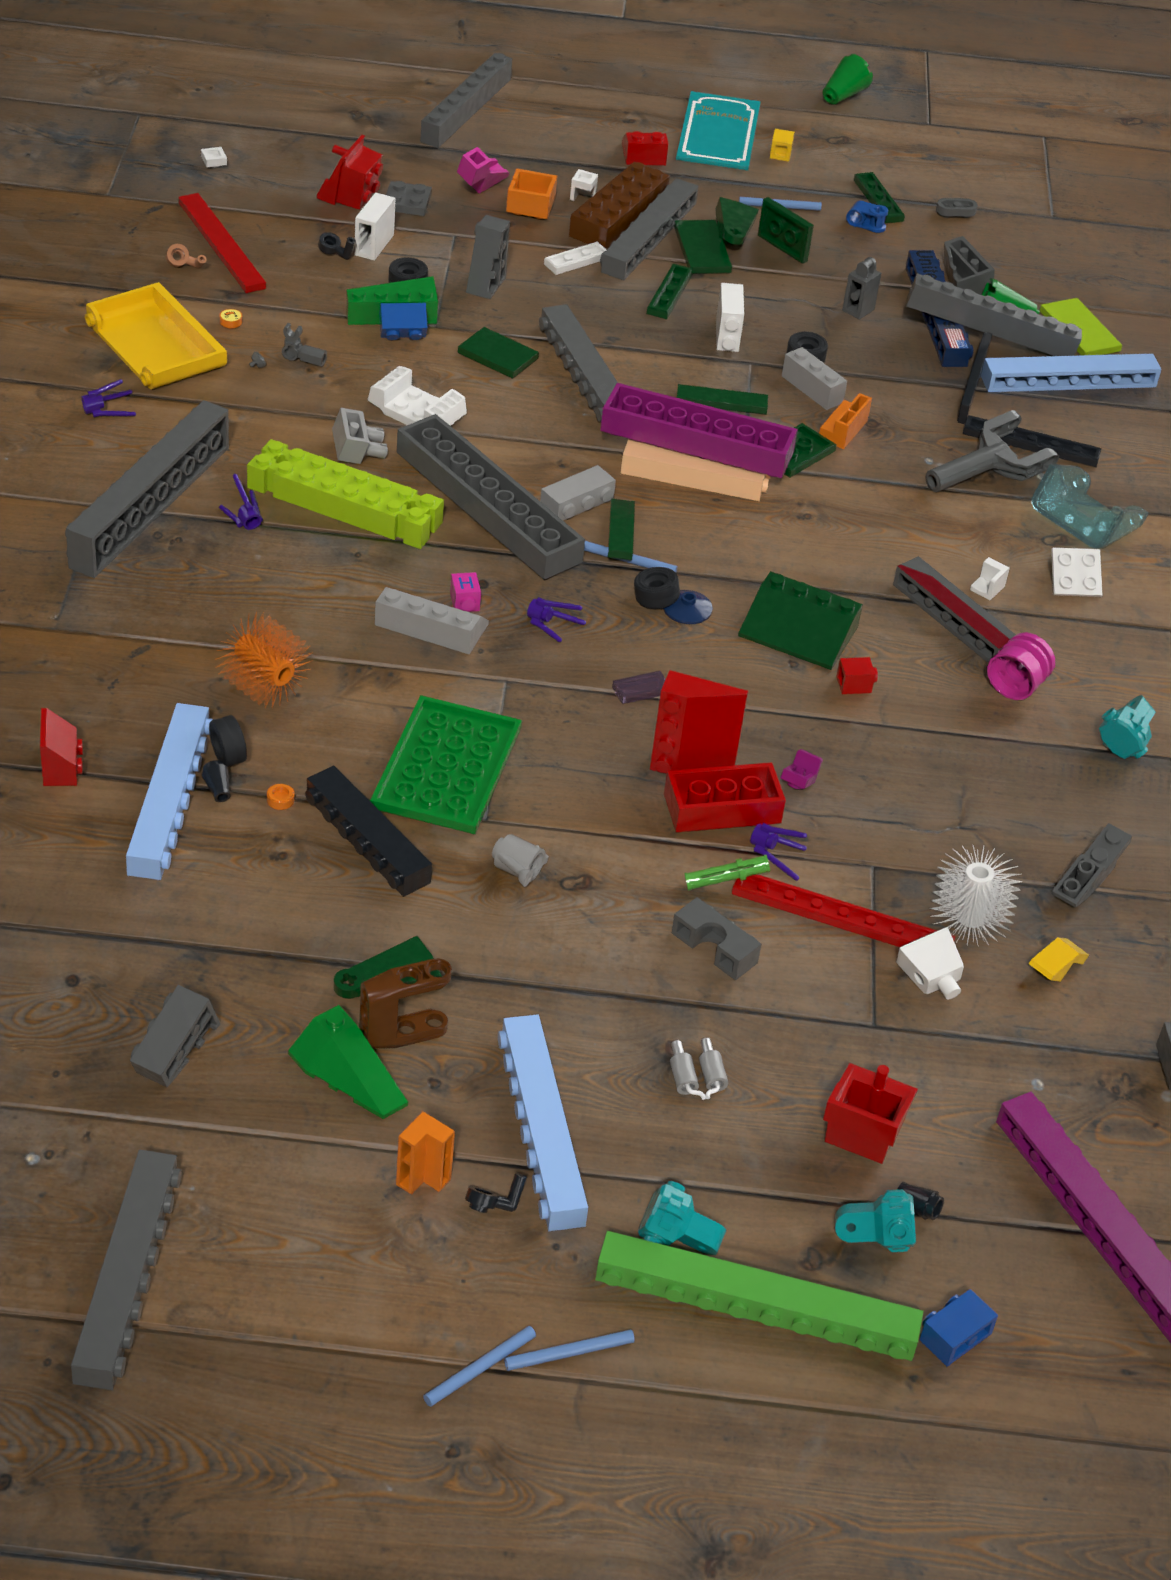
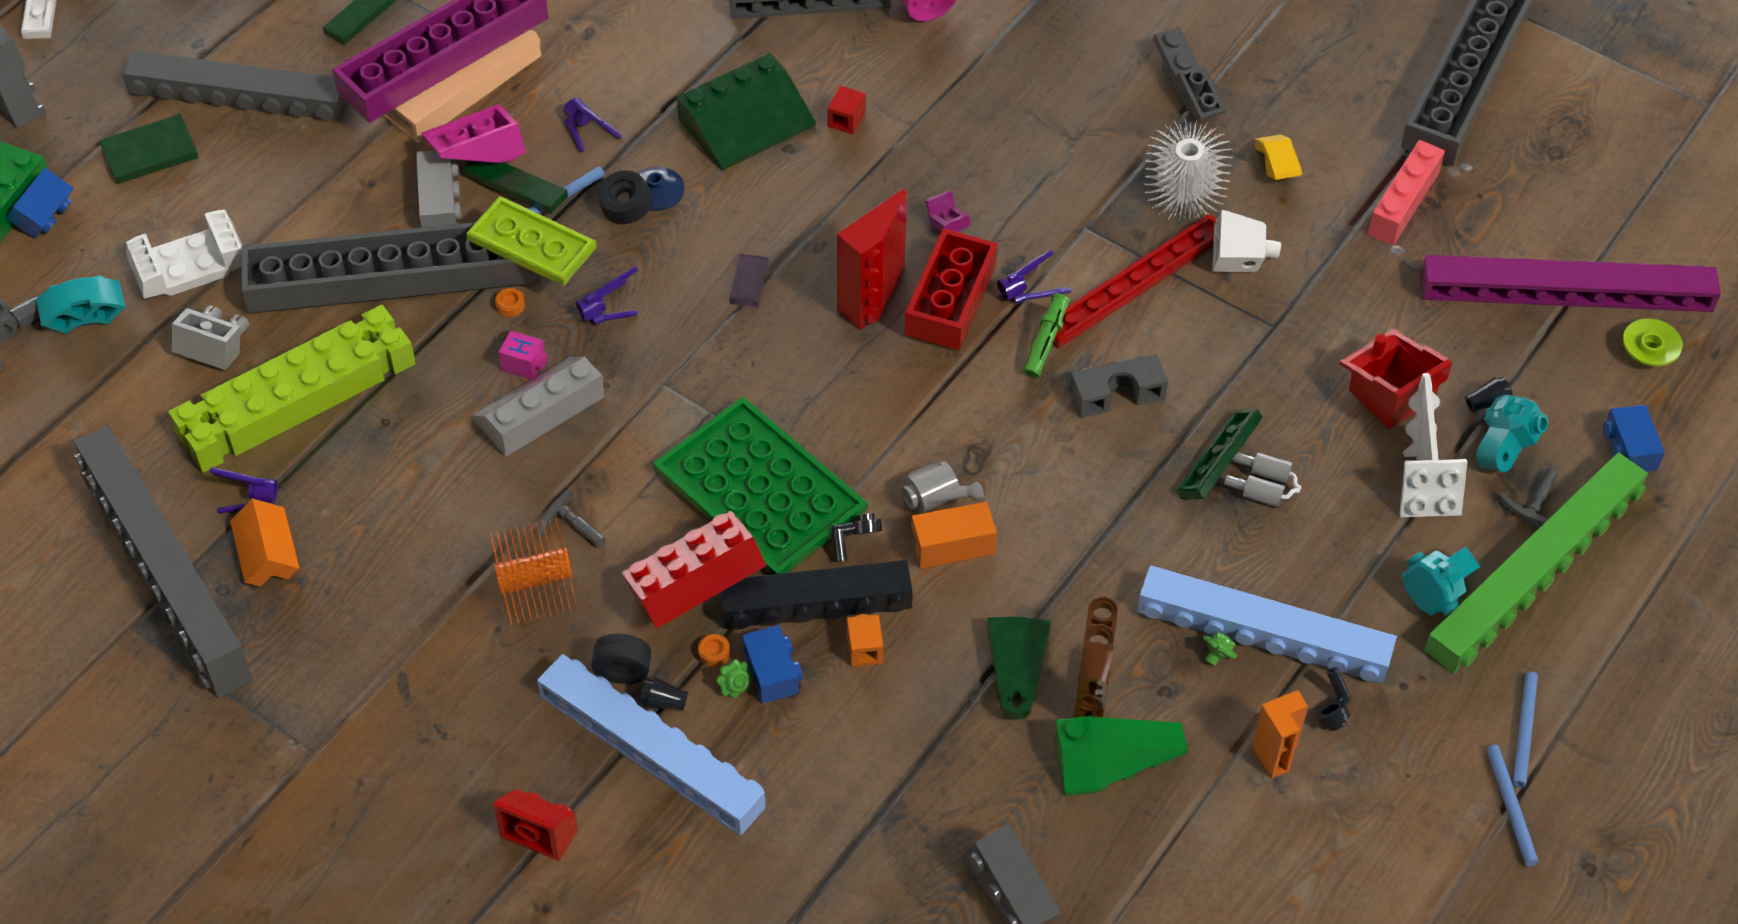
camera: 55 degrees left, 10 degrees up
(205, 533) = (264, 542): none -> orange piece
(258, 813) = (734, 678): none -> bright green plant
(285, 828) = (771, 663): none -> blue brick
(330, 743) = (693, 568): none -> red brick
(335, 371) = (80, 303): none -> teal brick
(345, 873) = (865, 640): none -> orange brick
(347, 668) = (559, 508): none -> dark grey piece
(452, 832) = (865, 524): none -> black plate
(481, 886) = (954, 535): none -> orange piece
(496, 1097) = (1219, 647): none -> bright green plant
(513, 571) = (510, 302): none -> orange tile
(559, 545) = (531, 240): none -> lime tile
(636, 489) = (481, 136): none -> dark pink slope
(699, 1029) = (1219, 454): none -> dark green tile
(715, 537) = (579, 114): none -> dark purple plant
(776, 1181) = (1429, 484): none -> white piece
(839, 1279) = (1531, 513): none -> dark grey piece
(1088, 1296) = (1652, 342): none -> lime dish
(1099, 1060) = (1406, 192): none -> coral brick

